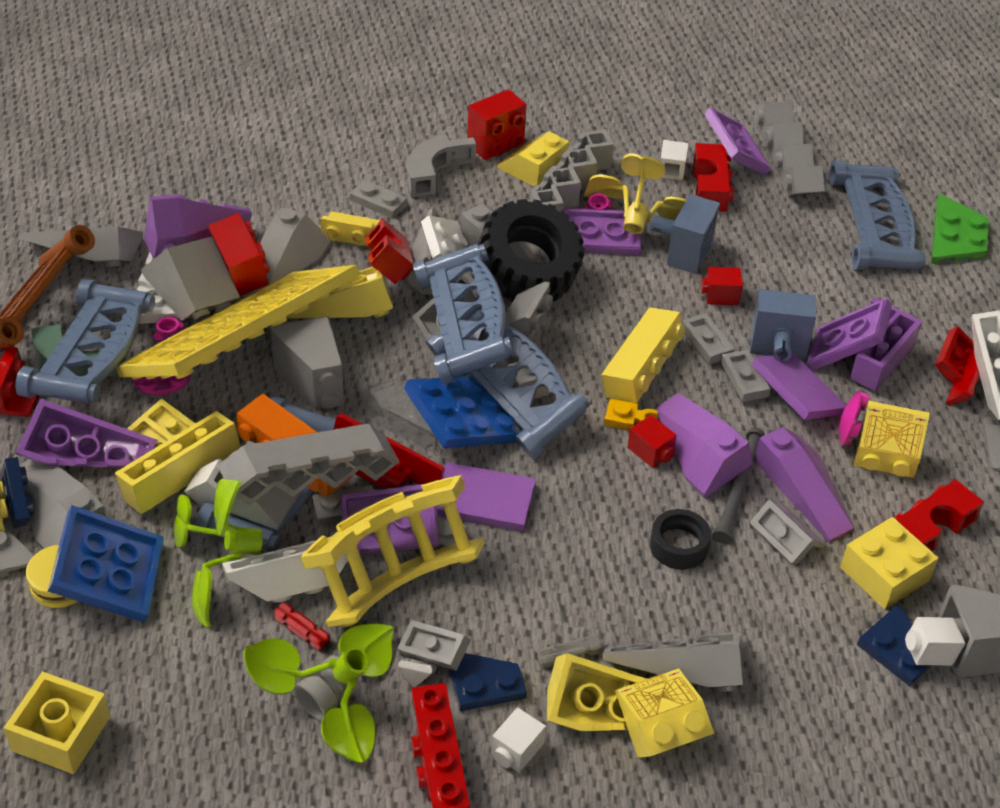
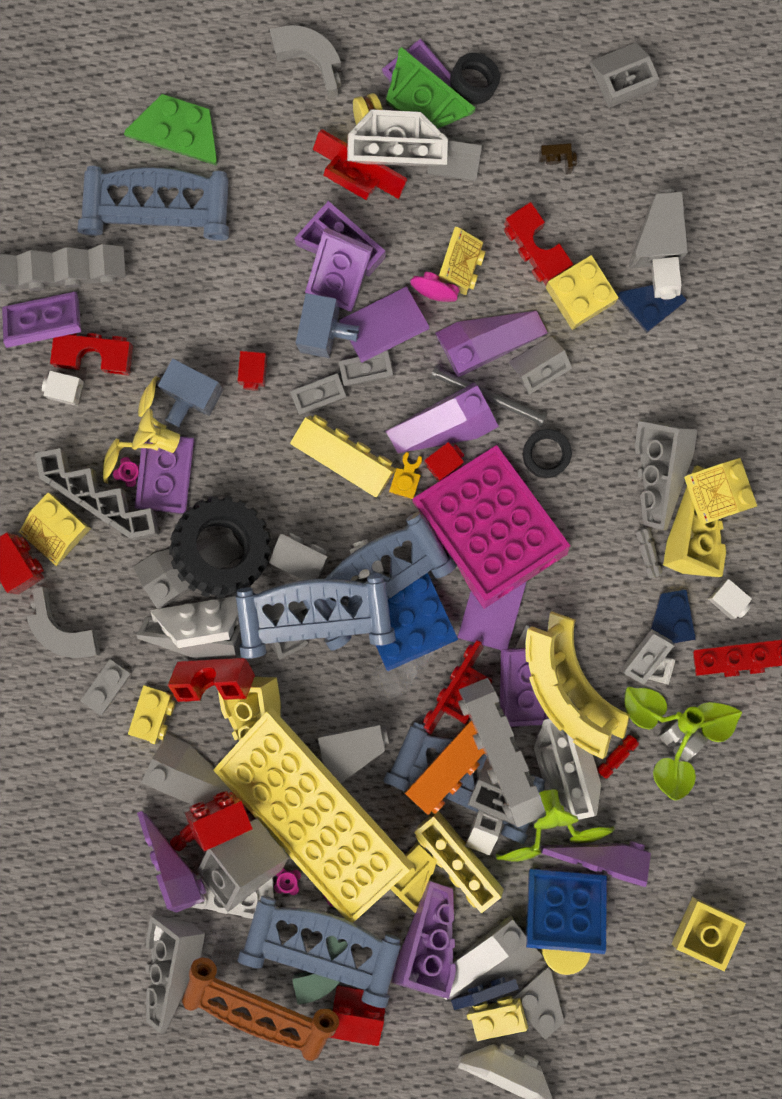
camera: 80 degrees left, 40 degrees up
(163, 611) = (618, 859): none -> medium lavender wedge
(578, 484) = (491, 526): none -> dark pink piece

